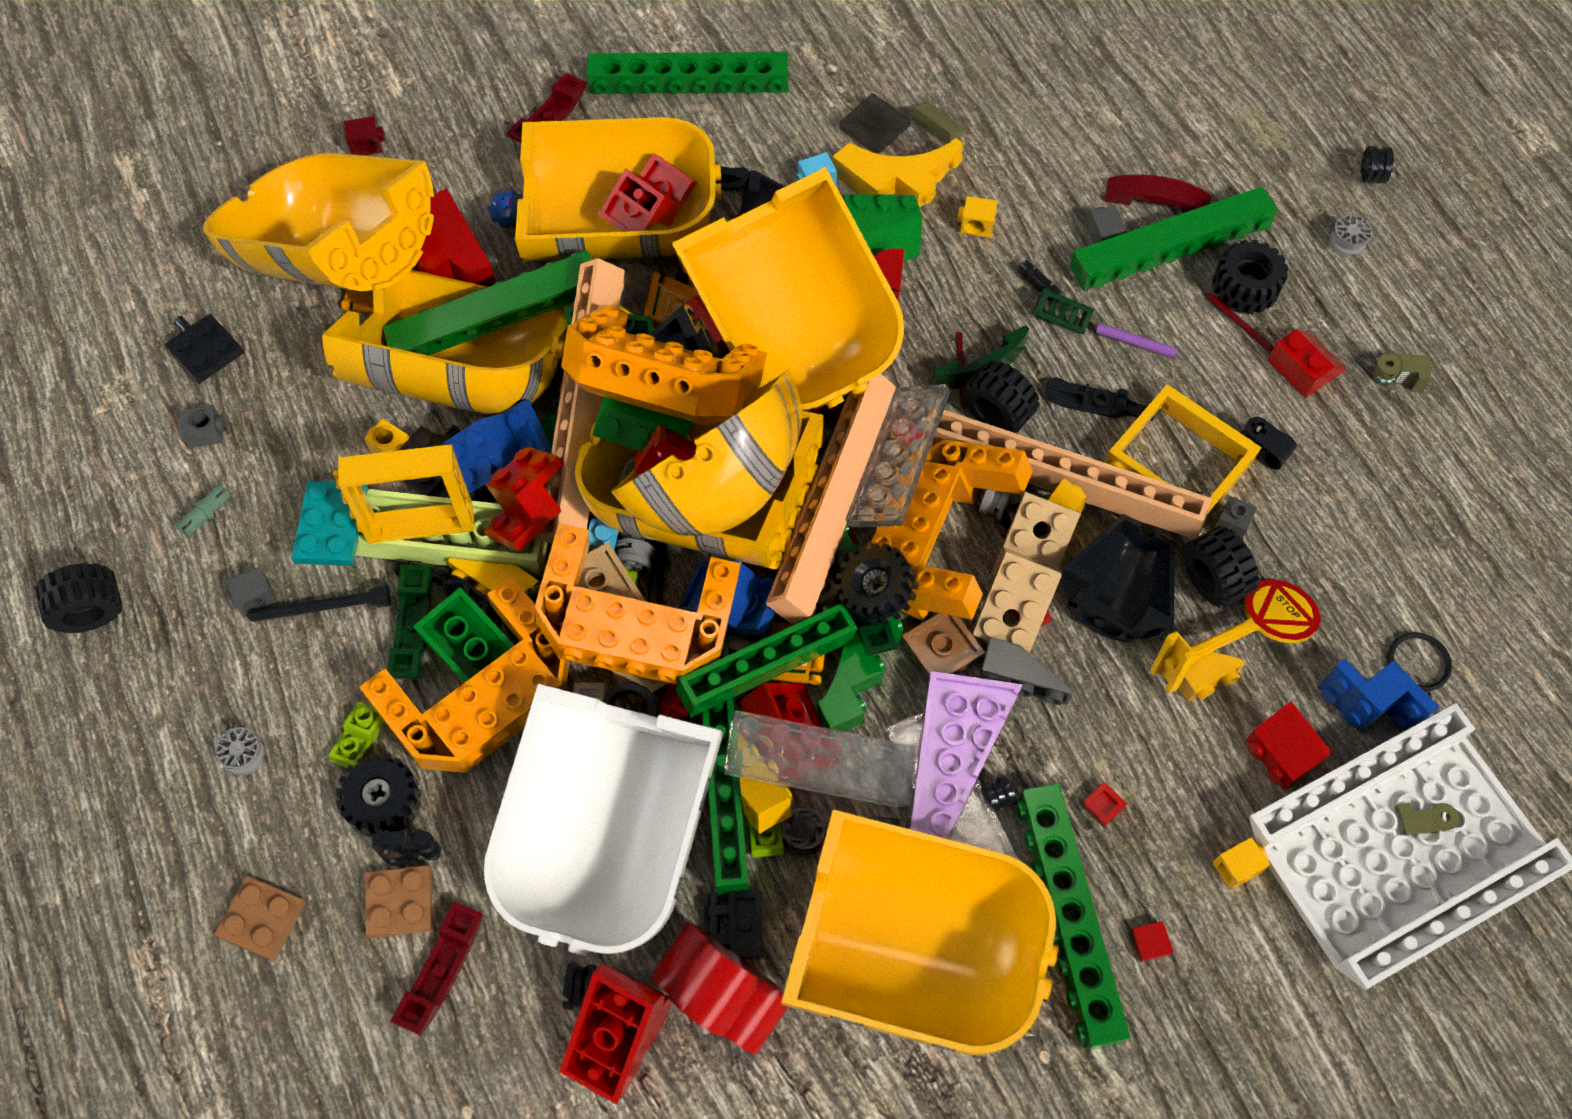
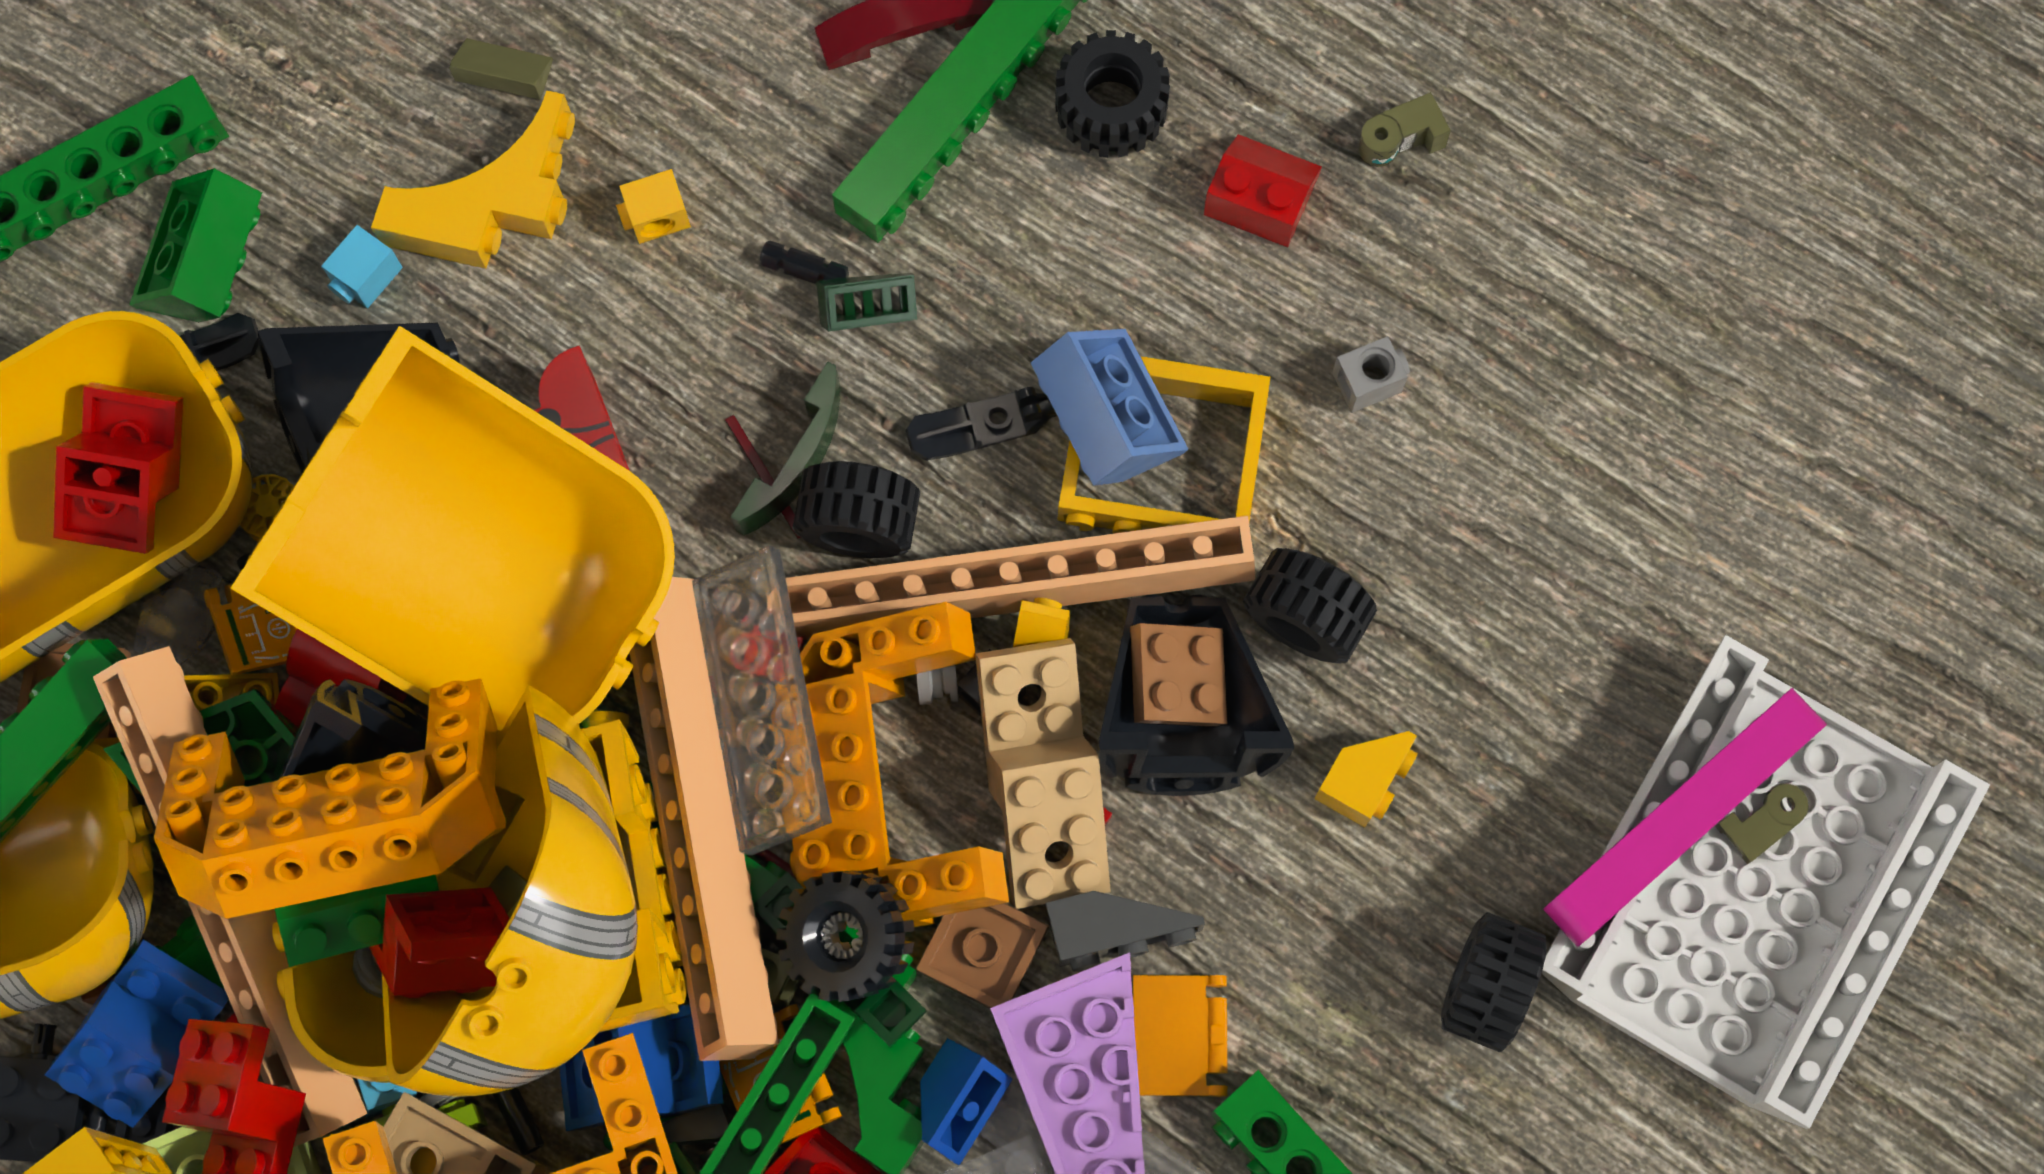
camera: 30 degrees left, 10 degrees up
(747, 128) = (197, 247): none -> green slope
(874, 123) = (402, 125): clear smoke plate -> none
(887, 221) = (515, 316): green wedge -> none
(888, 708) = (958, 1099): none -> blue slope
(999, 793) = (1181, 1130): black wheel -> none
(1024, 748) = (1179, 1034): none -> light orange piece
(1104, 804) = (1331, 1054): red tile -> none
(1105, 224) = (855, 119): dark grey brick -> none
(1127, 565) = (1178, 675): none -> medium nougat plate
(1136, 340) = (999, 288): medium lavender bar -> none
(1164, 413) = (1108, 405): none -> medium blue slope
(1219, 809) = (1494, 982): none -> black tyre
(1236, 516) = (1289, 512): dark grey brick -> none
(1239, 322) = (1132, 172): dark red axle -> none
(1241, 863) = (1558, 1033): yellow brick -> none
(1274, 609) = (1422, 623): yellow piece -> none
(1275, 444) = (1282, 356): black piece -> none
(1287, 746) = (1534, 829): red slope -> none
(1310, 484) = (1359, 389): none -> light grey brick
(1366, 701) = (1617, 683): blue bracket -> none
(1381, 779) = (1684, 817): none -> dark pink beam
(1448, 662) = (1617, 616): black tyre -> none

